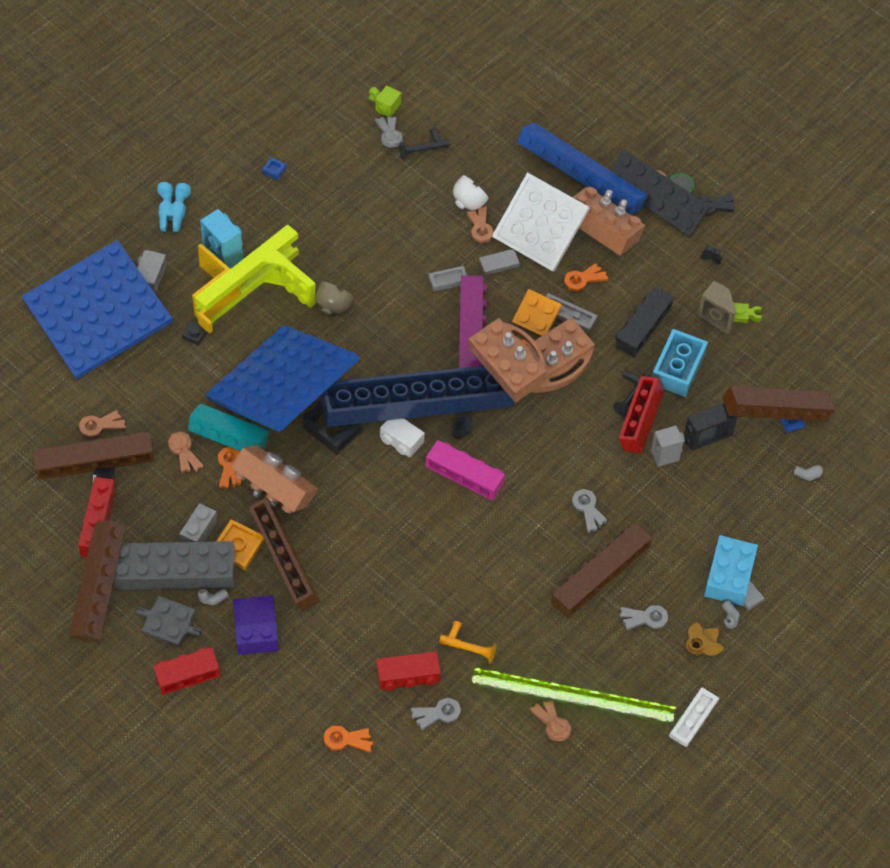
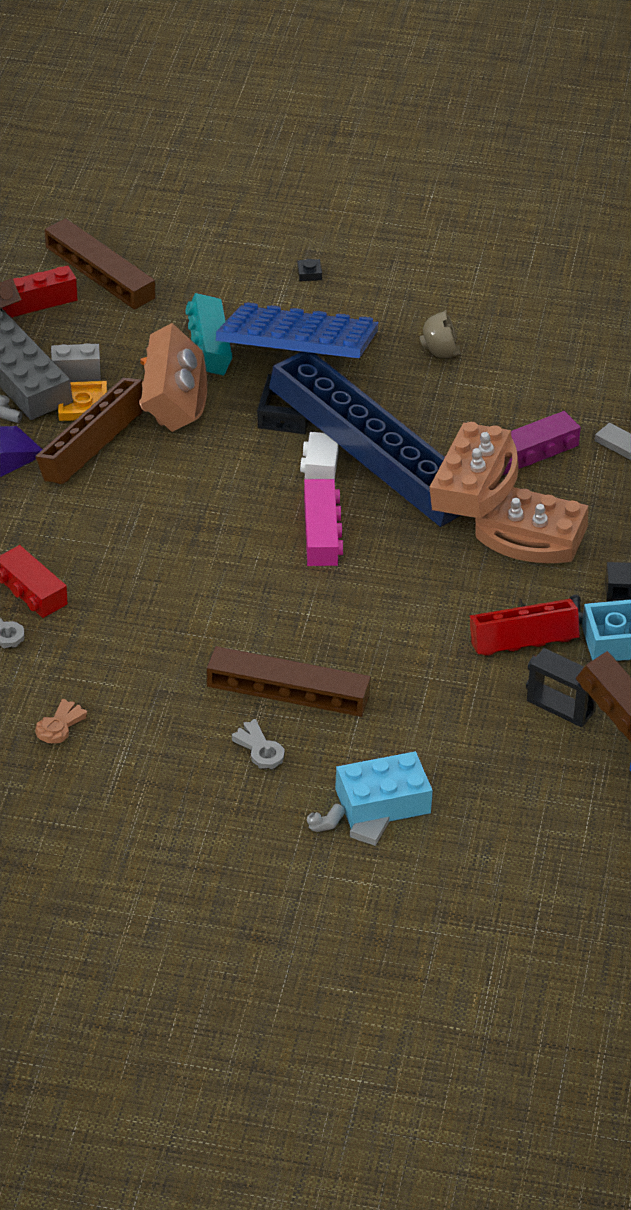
camera: 60 degrees right, 15 degrees down
(92, 426) = (137, 251): nougat piece -> none
(97, 309) = (271, 193): blue plate -> none
(108, 473) = (84, 279): black plate -> none
(152, 267) = (350, 208): light grey brick -> none
(172, 212) = (441, 192): medium azure piece -> none
(180, 444) = (164, 313): nougat piece -> none
(222, 238) = (424, 226): medium azure brick -> none
(260, 266) = (370, 258): neon yellow piece -> none
(274, 168) = (567, 238): blue tile -> none
(446, 278) = (551, 406): light grey tile -> none
(462, 426) = (376, 498): black plate -> none
(488, 652) = (104, 635): light orange piece -> none
(536, 313) = (583, 486): light orange plate -> none
(580, 696) = (107, 727): clear neon green plate -> none
(583, 317) = (608, 519): light grey plate -> none
(585, 501) = (367, 634): light grey piece -> none
(667, 445) = (499, 661): light grey brick -> none
(694, 717) = (159, 839): white plate -> none
(705, 639) = (270, 808): pearl gold plate -> none
(810, 473) = (591, 814): light grey arm -> none

